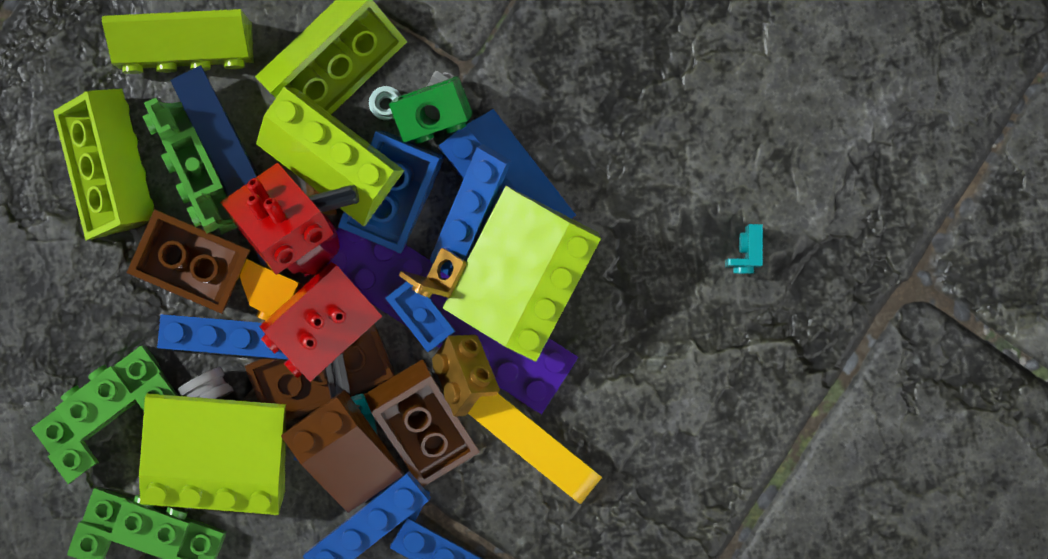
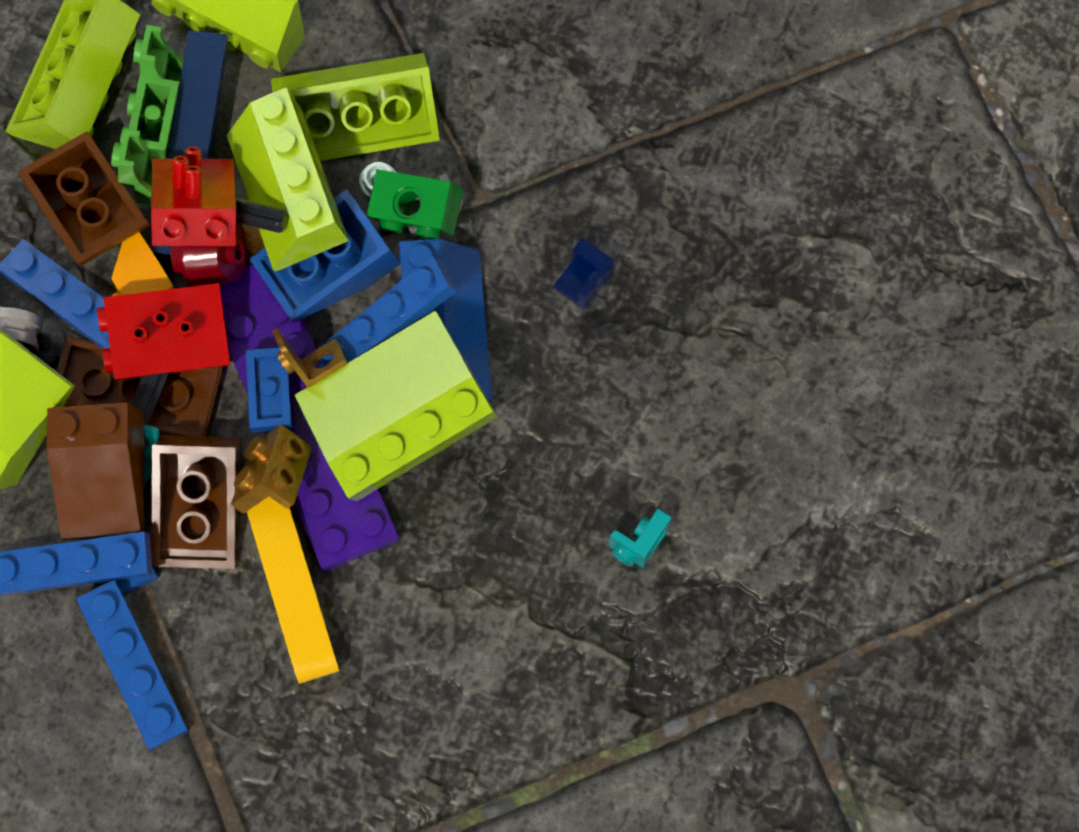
camera: 30 degrees right, 15 degrees down
(581, 80) = (585, 274): none -> clear blue panel

